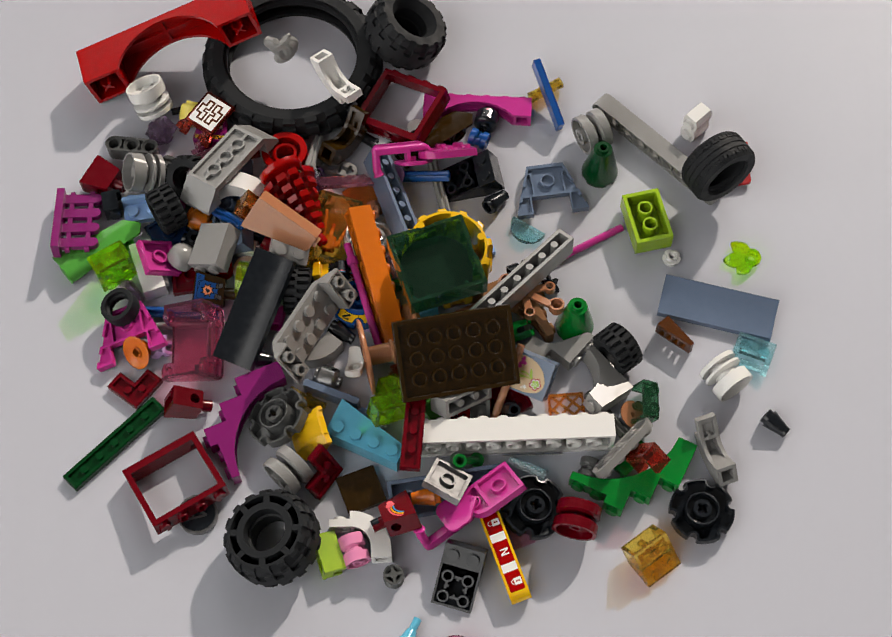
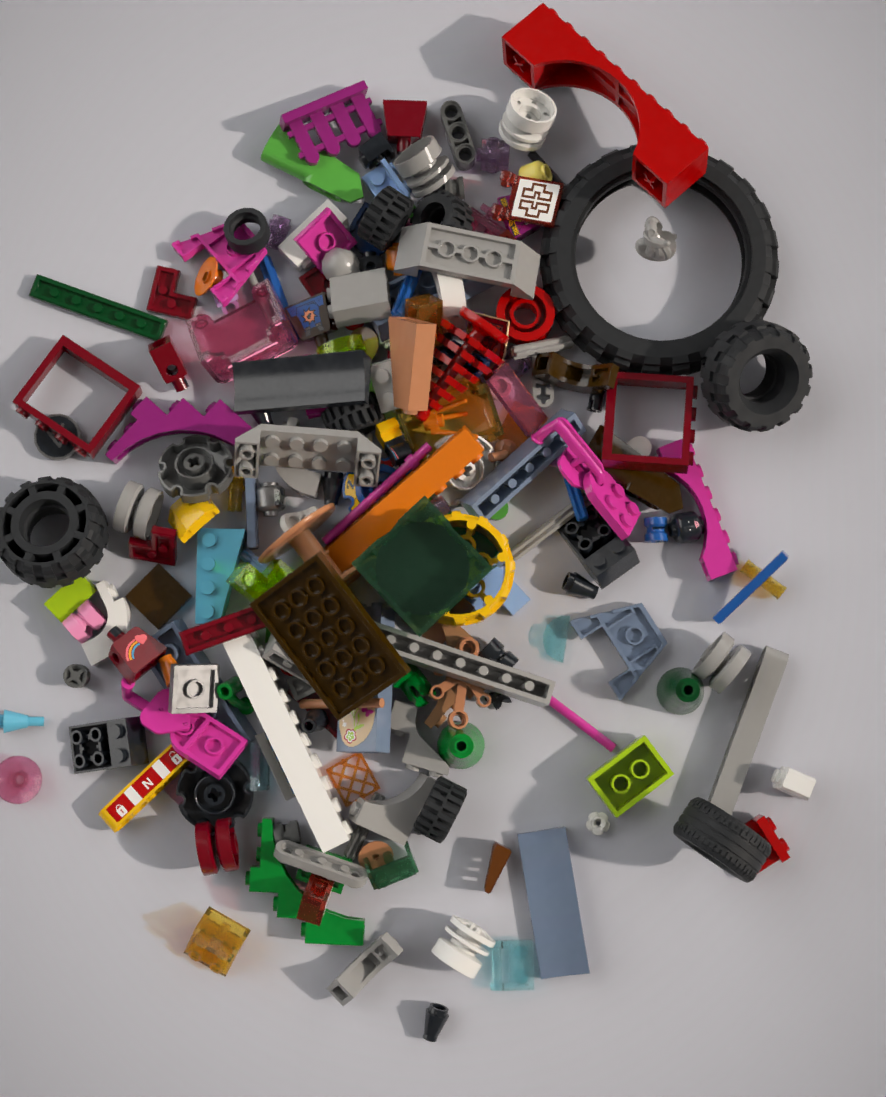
camera: 65 degrees right, 20 degrees up
(112, 265) = (293, 194): clear neon green brick -> none
(333, 78) = (638, 327): white arch -> none
(701, 526) = (293, 997): black piece -> none
(740, 258) = (634, 903): clear neon green plate -> none

